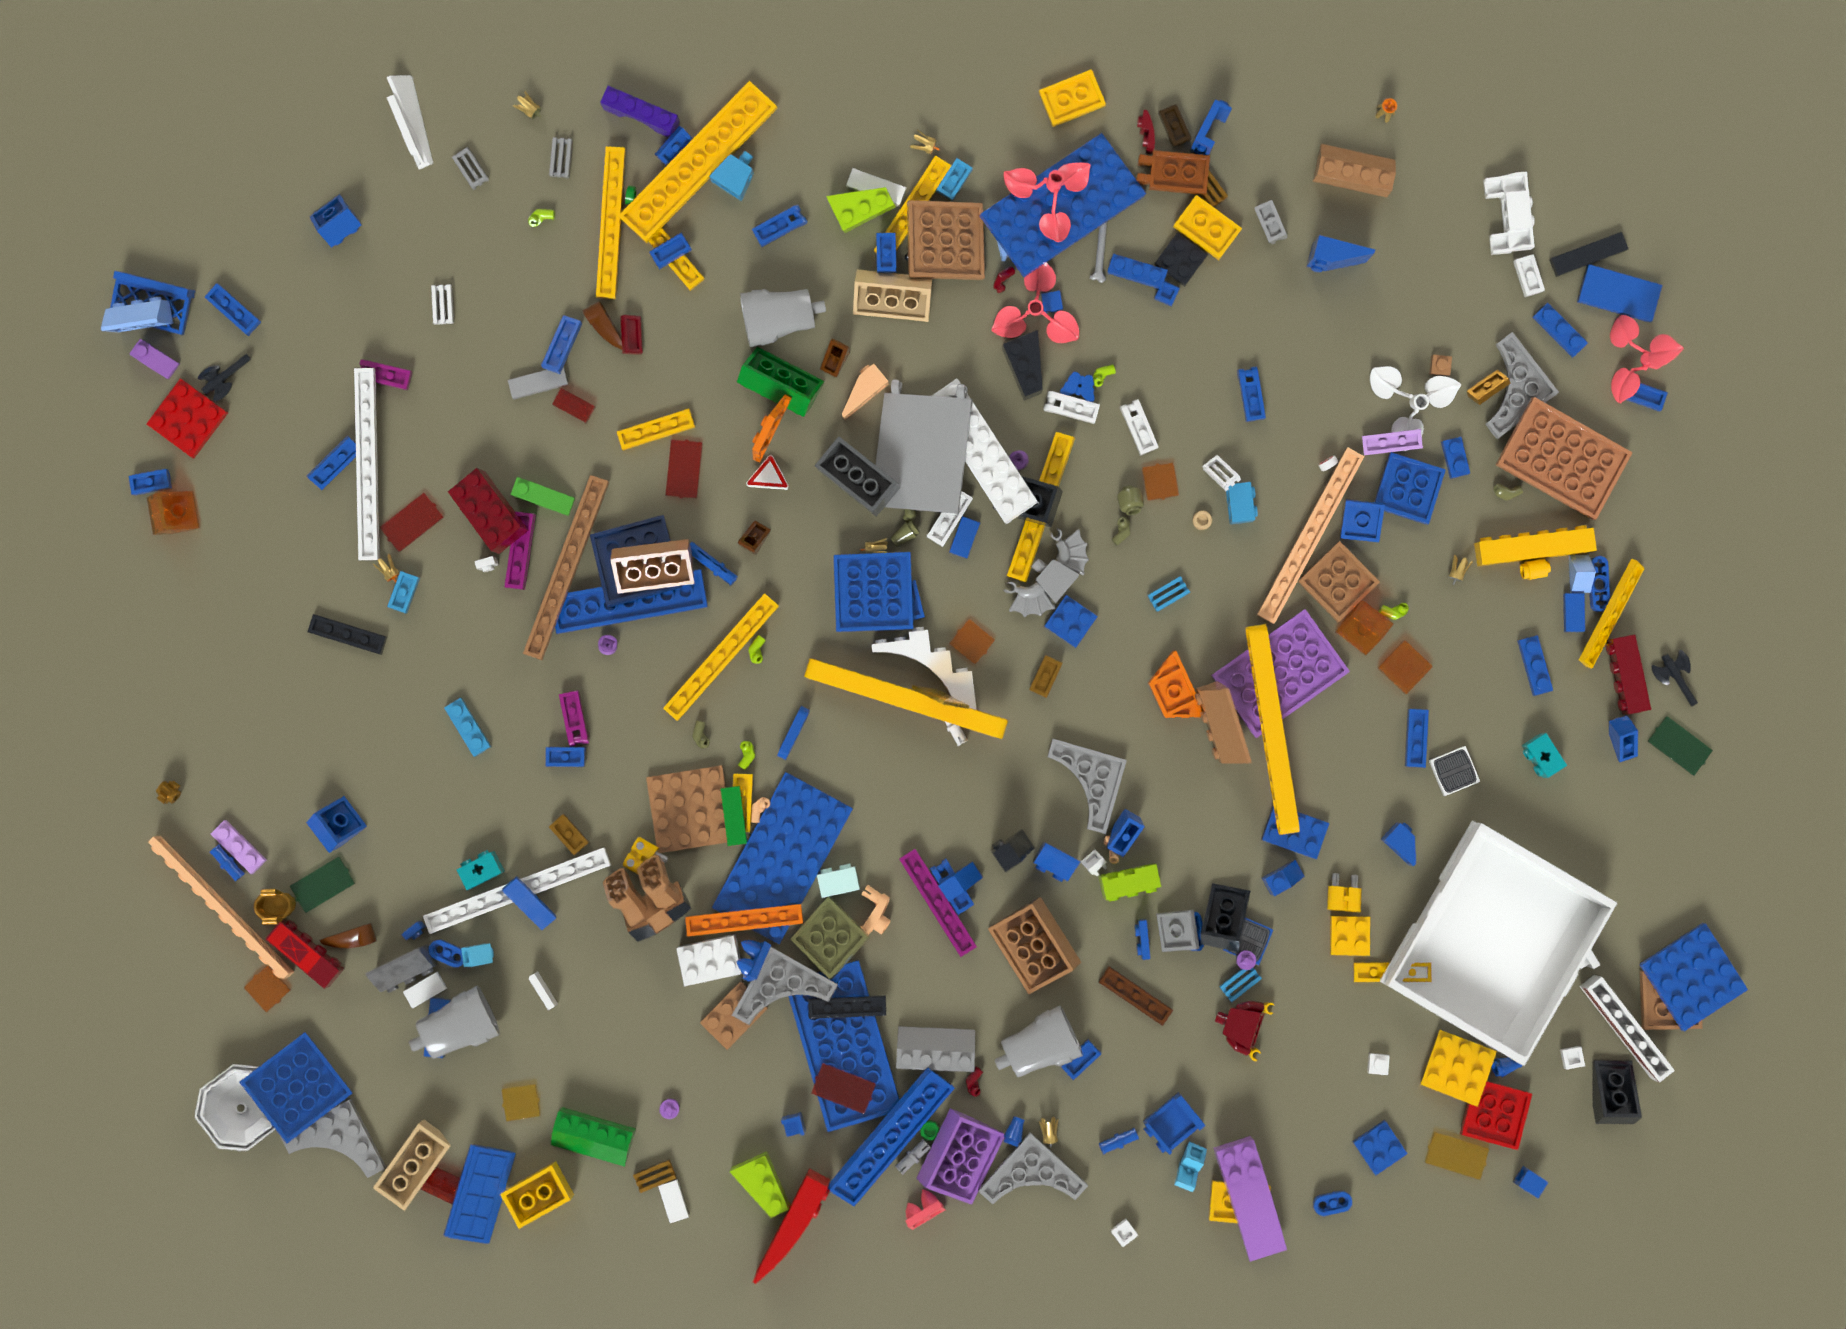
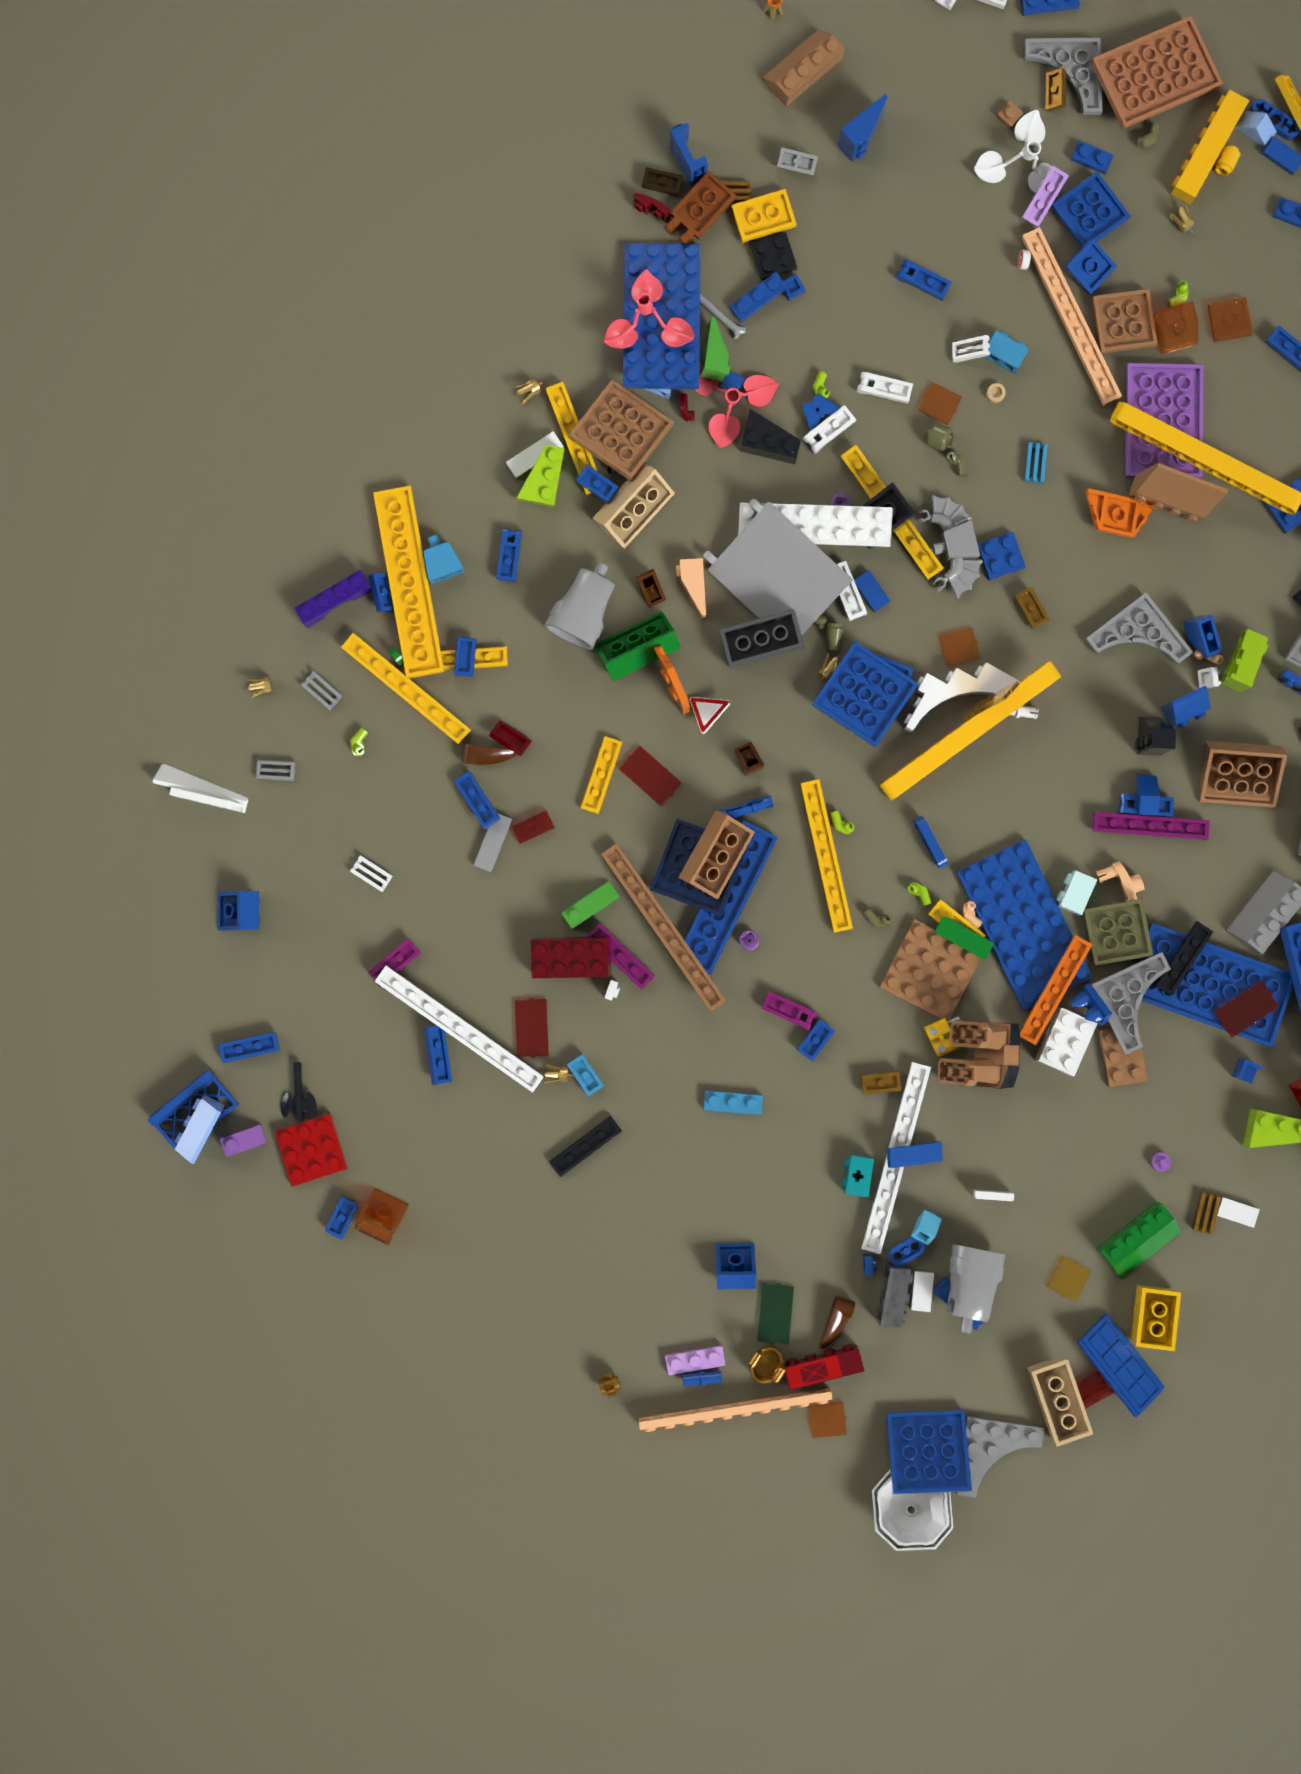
camera: 60 degrees left, 0 degrees up
(954, 179) = (575, 387): dark azure plate -> none
(1062, 271) = (715, 354): none -> bright green slope
(1072, 98) = (579, 246): yellow plate -> none

